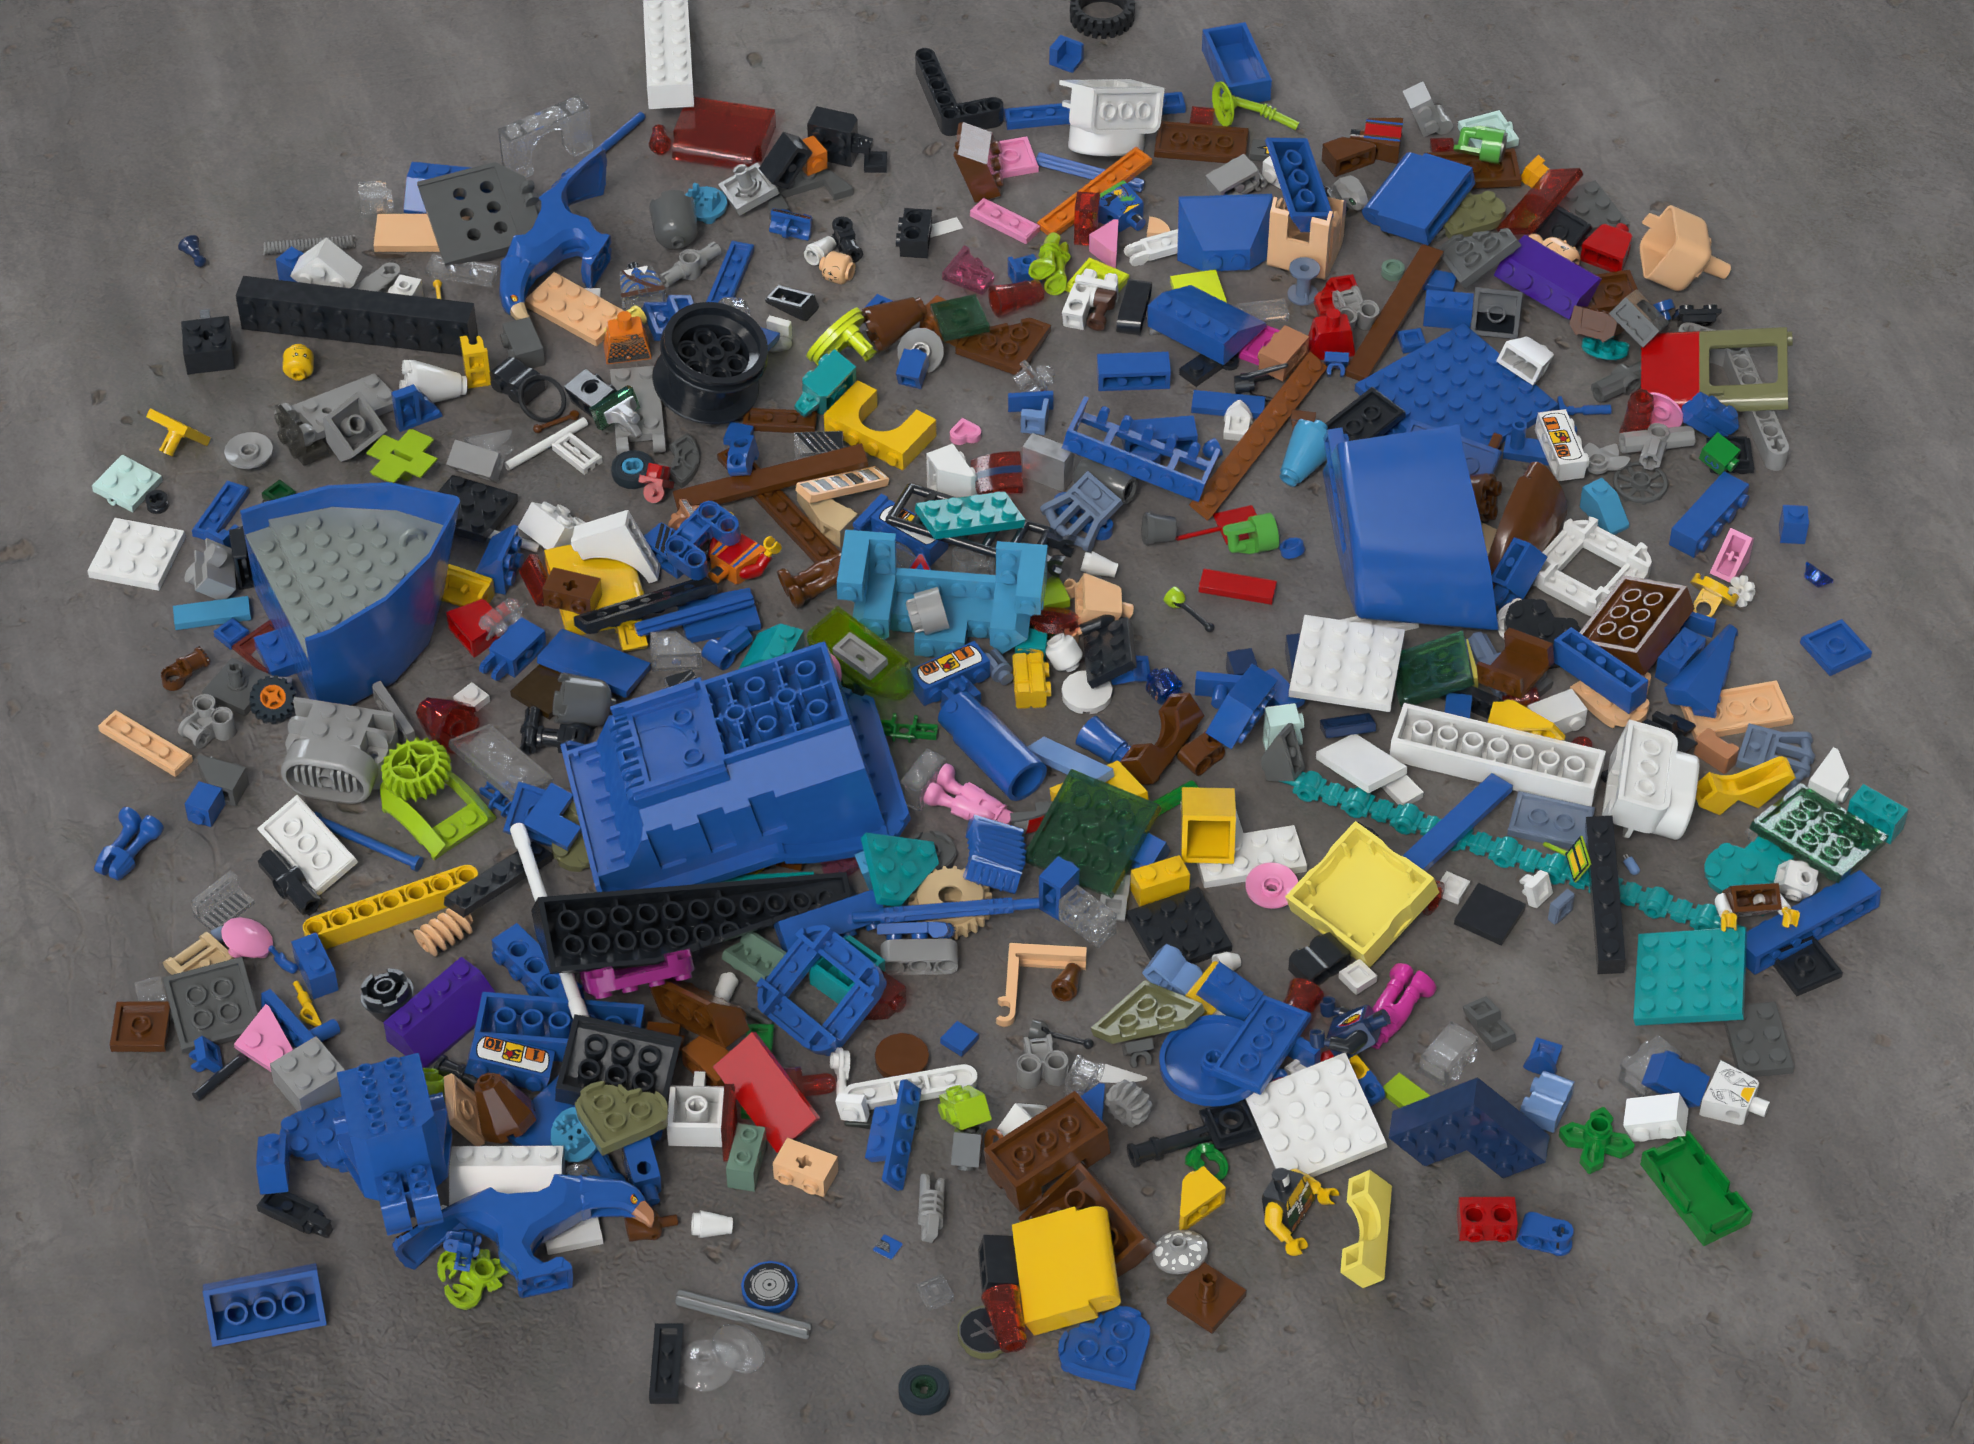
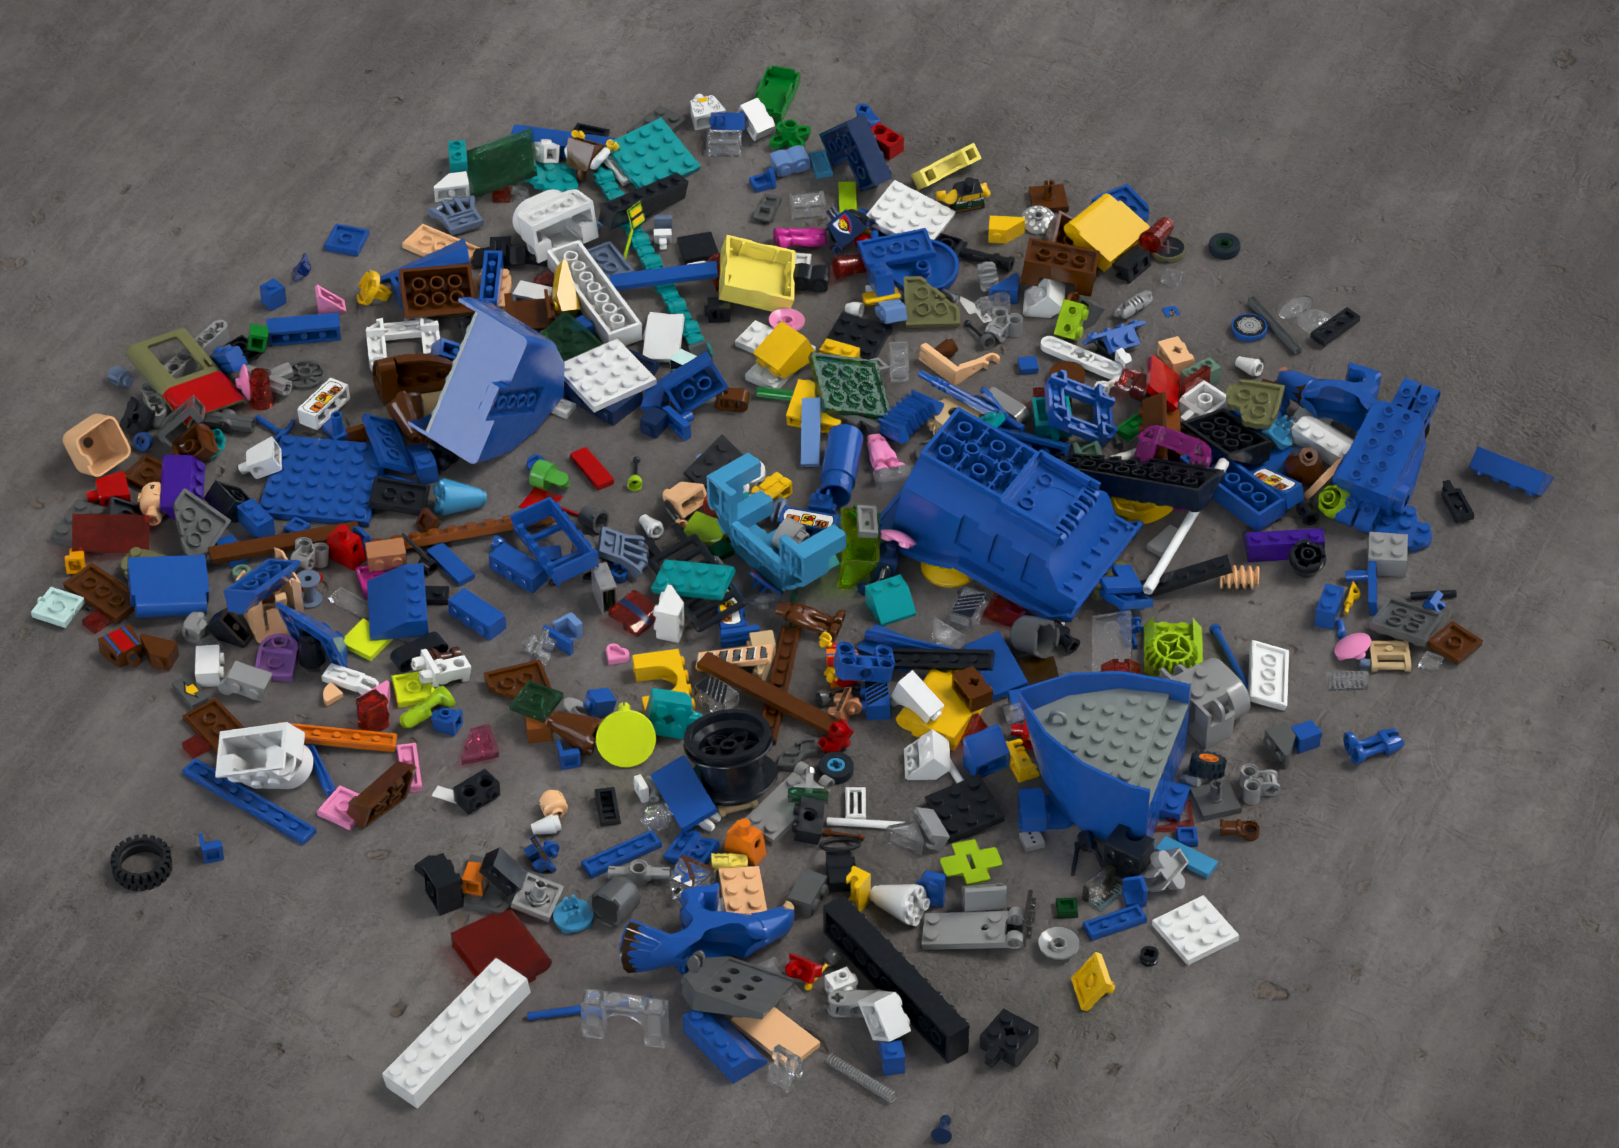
camera: 135 degrees left, 5 degrees down
(126, 483) = (1156, 982): light aqua plate -> none
(145, 743) = (1303, 804): light nougat tile -> none
(263, 1039) = (1394, 587): bright pink wing -> none
(273, 1164) = (1449, 518): blue brick -> none
(289, 882) = (1298, 662): black piece -> none
(298, 362) = (963, 982): yellow head -> none
(387, 908) = (1255, 610): yellow beam -> none
(451, 273) = (803, 968): none -> red hips
(527, 964) = (1210, 530): blue brick -> none
(529, 730) = (1074, 654): black pin -> none
(659, 140) = (543, 981): clear red cone -> none
(723, 651) = (916, 622): blue piece -> none
(742, 458) = (774, 706): blue leg -> none
(845, 238) = (522, 819): black connector -> none
(981, 113) = (341, 860): black beam -> none
(1014, 296) = (479, 705): clear red plant -> none
(1055, 883) = (897, 378): blue brick -> none
(1102, 741) = (776, 436): blue plant -> none
(1122, 204) = (336, 713): blue torso -> none
(1162, 684) = (704, 439): clear blue head -> none
(1178, 720) = (759, 411): reddish brown arch -> none
(1208, 1149) = (981, 246): green piece -> none
(1229, 102) = (175, 725): lime dish -> none
(1237, 62) = (130, 751): blue piece -> none
(1237, 421) = (464, 549): white tile -> none
(1428, 116) = (78, 633): light grey hinge -> none
(1492, 145) = (86, 579): bright green piece -> none
(1603, 503) = (348, 370): dark azure slope -> none
(1604, 458) = (303, 392): light grey plate -> none
(1716, 751) = (483, 233): nougat piece -> none
(1743, 589) = (349, 287): white plant -> none
(1750, 786) = (494, 200): yellow arch -> none
(1794, 352) = (120, 377): none -> sand blue arm

